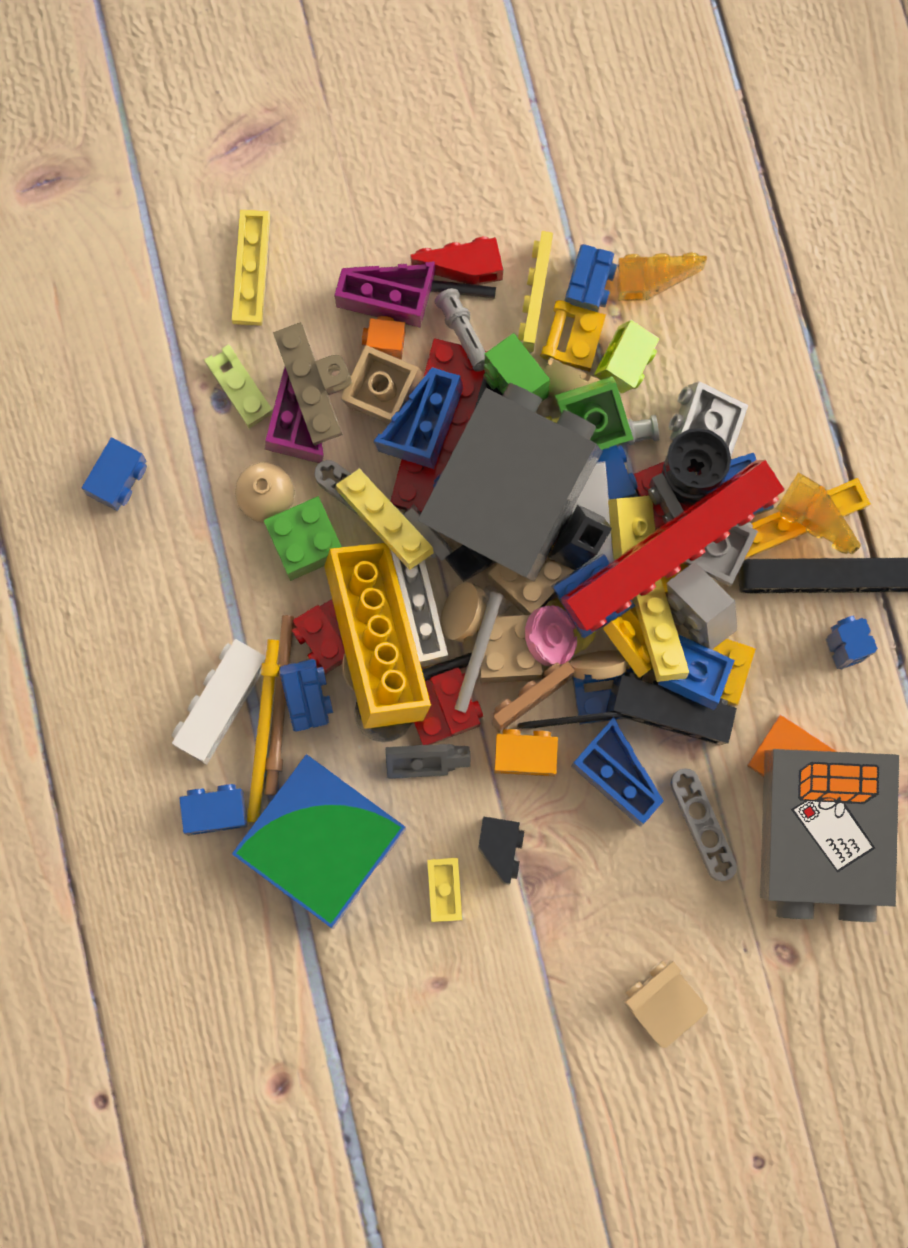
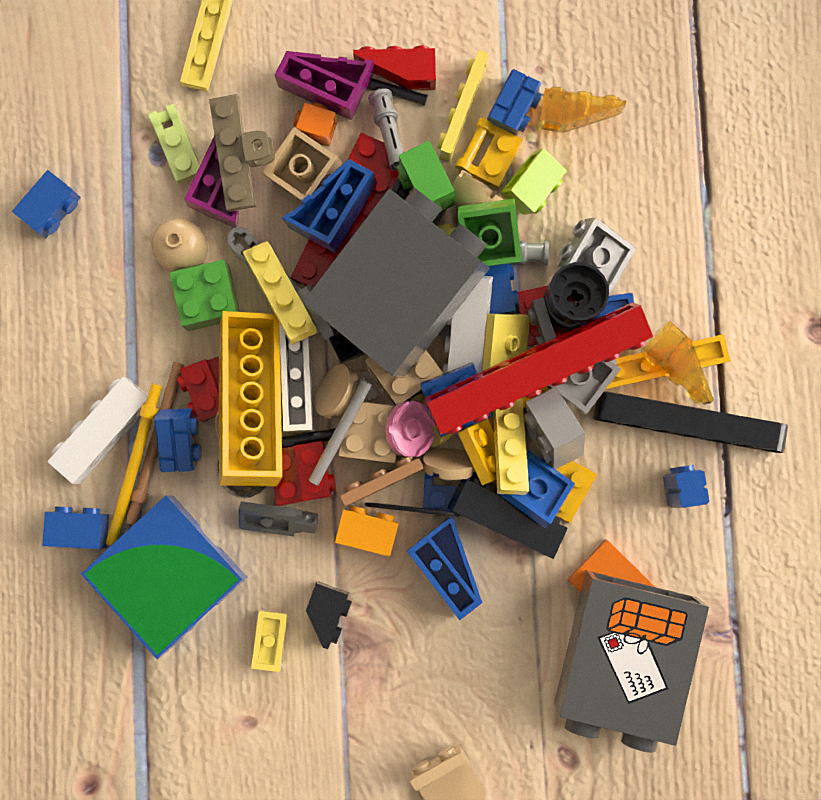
camera: 15 degrees right, 5 degrees up
(580, 538) = (454, 345): black slope -> none
(708, 822) = (520, 625): light grey beam -> none

